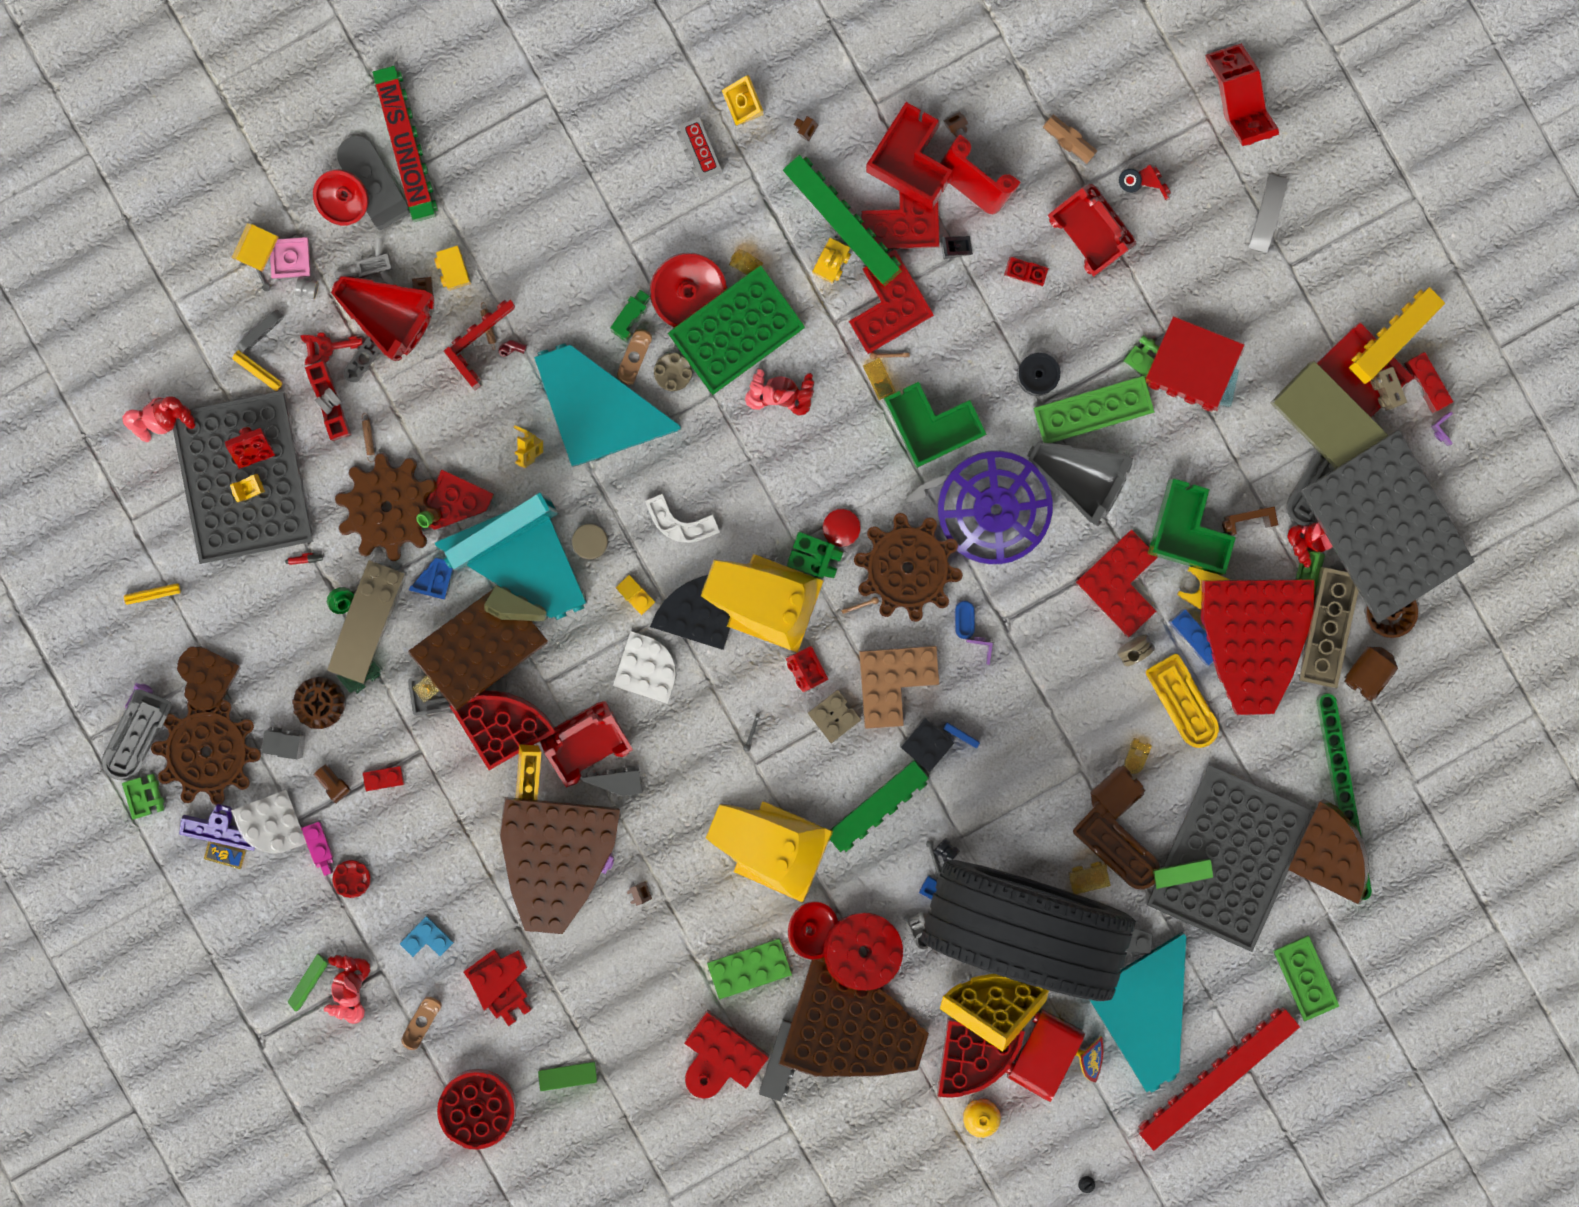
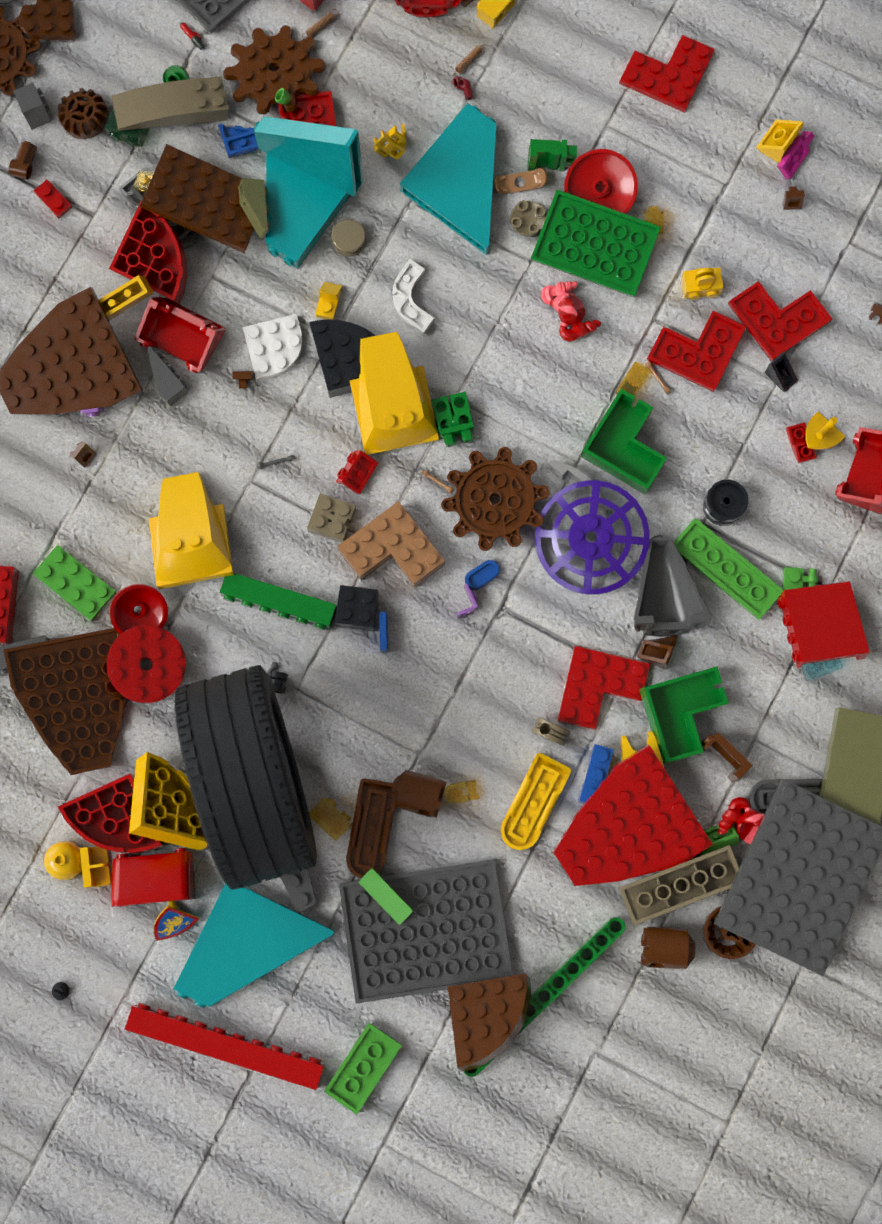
camera: 55 degrees right, 10 degrees down
(475, 332) = (452, 47): red bracket -> none
(628, 156) = (673, 82): none -> red plate
(659, 713) = (242, 376): none -> reddish brown tile
(699, 149) = (718, 128): brick -> none
(767, 96) = (795, 154): none -> dark pink hinge
(841, 219) = (740, 269): green brick -> none
(841, 527) = (491, 427): red dish -> none
(901, 159) = (822, 284): red piece -> none
(974, 183) = (843, 366): red windscreen -> none
(1004, 1096) = (95, 867): none -> yellow panel
(1030, 248) = (822, 433): none -> yellow shield
(1125, 514) = (658, 651): none -> reddish brown slope

